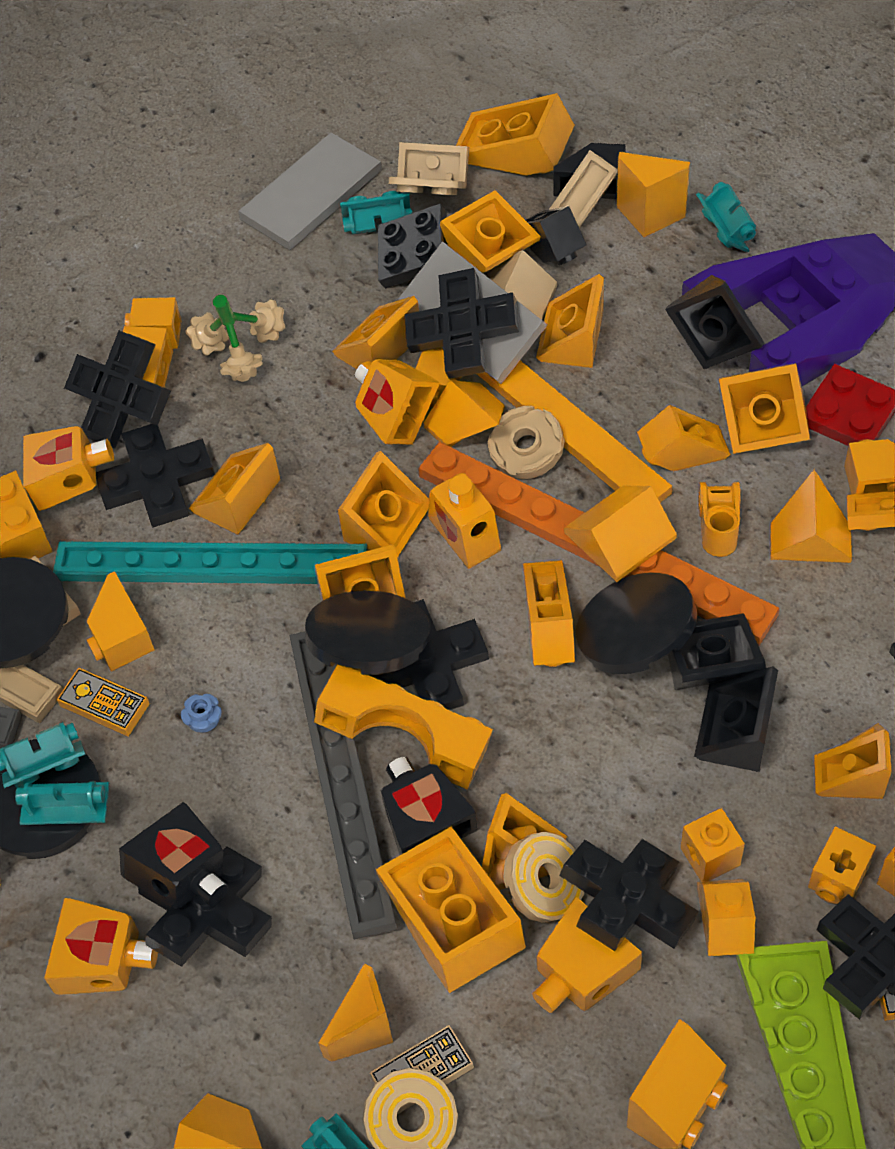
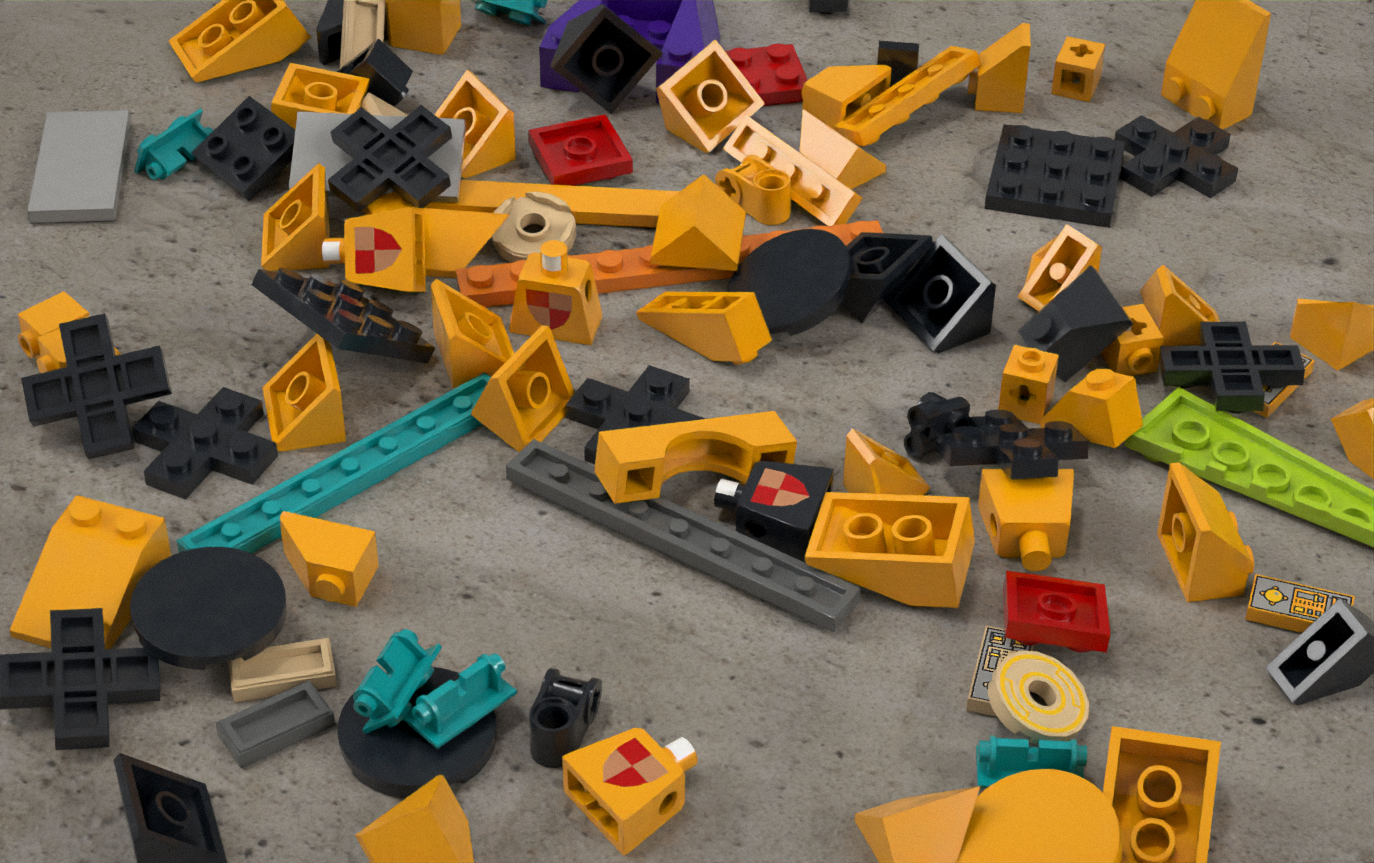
camera: 50 degrees left, 15 degrees down
(61, 464) = (109, 467): light orange torso -> none
(103, 701) = (369, 627): tile -> none
(105, 853) = (561, 716): none -> black piece
(175, 860) = (641, 650): black torso -> none
(204, 721) = (491, 574): medium blue plate -> none
(210, 335) = (171, 273): tan plant -> none
(229, 922) = (686, 687): black plate -> none
(305, 437) = (344, 315): none -> black plate
(358, 1022) = (918, 658): light orange slope -> none
(367, 631) = (589, 402): black tile -> none
(433, 166) = (193, 86): tan bracket -> none
(500, 1058) = (1056, 612): none -> red plate
(522, 876) = (929, 473): tan tile -> none
(612, 822) = (934, 416): none -> black plate
(631, 391) = (580, 151): none -> red plate
(681, 440) = (662, 158): light orange slope -> none
(761, 520) = (810, 184): none -> light orange plate
(799, 820) = (1077, 323): none -> black slope

